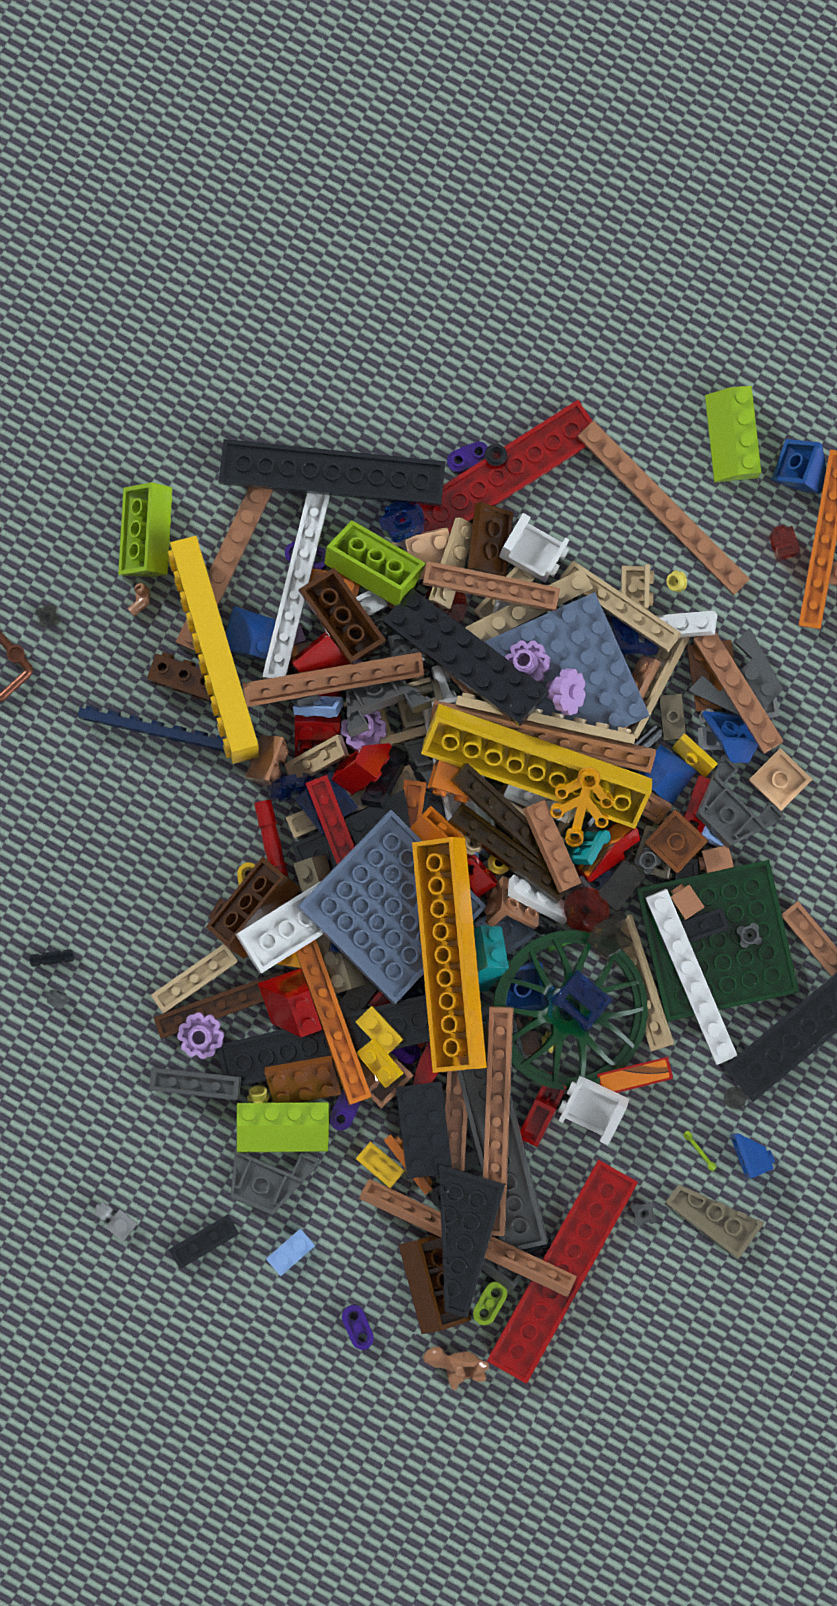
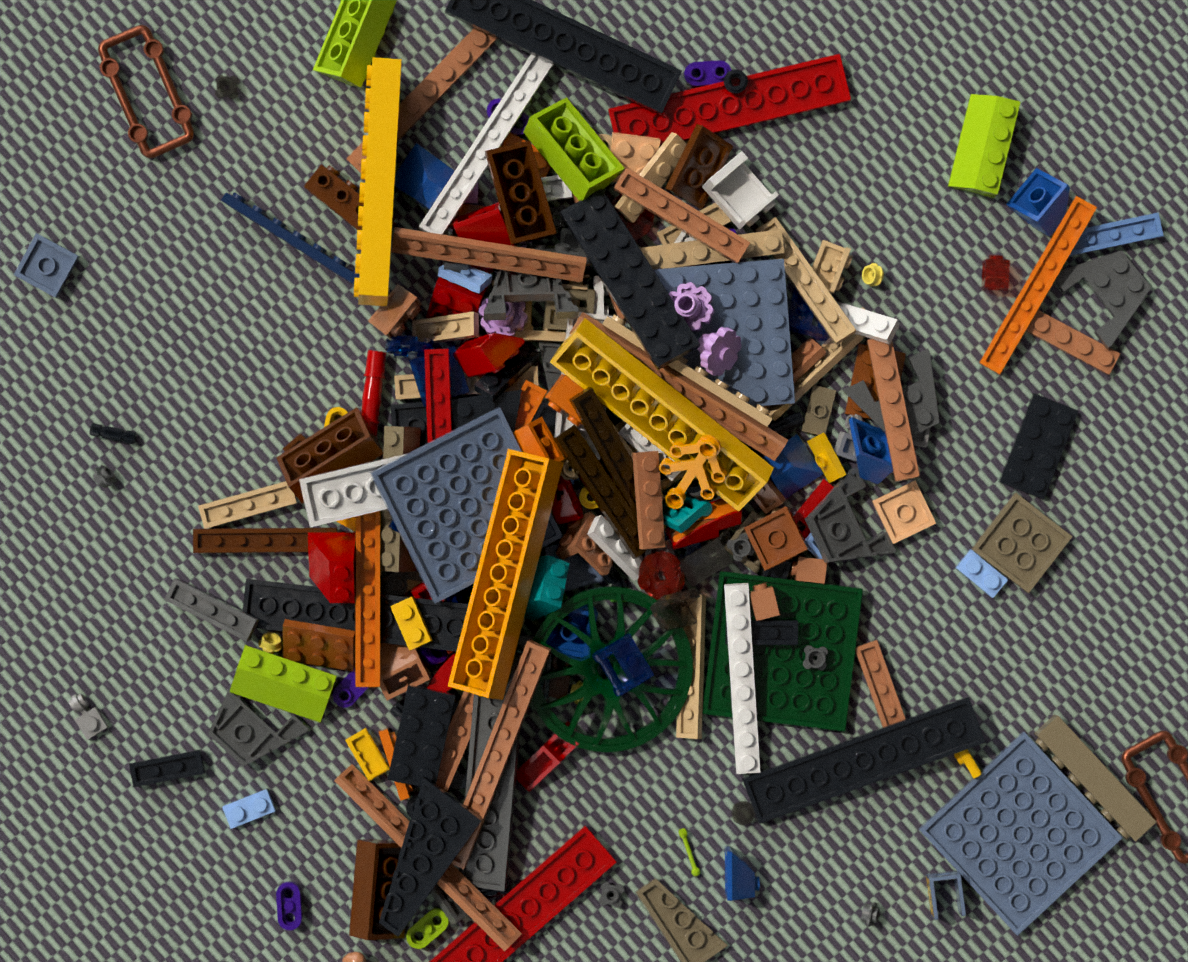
camera: 20 degrees right, 5 degrees up
(142, 599) = (327, 104): nougat arm -> none
(200, 1035) = (233, 564): lavender plant -> none
(379, 1062) = (400, 655): yellow plate -> none
(398, 530) = (616, 127): clear blue plate -> none
(594, 1108) = (598, 774): white panel -> none
(637, 1075) = (651, 757): slope -> none
(663, 508) = (886, 195): nougat plate -> none

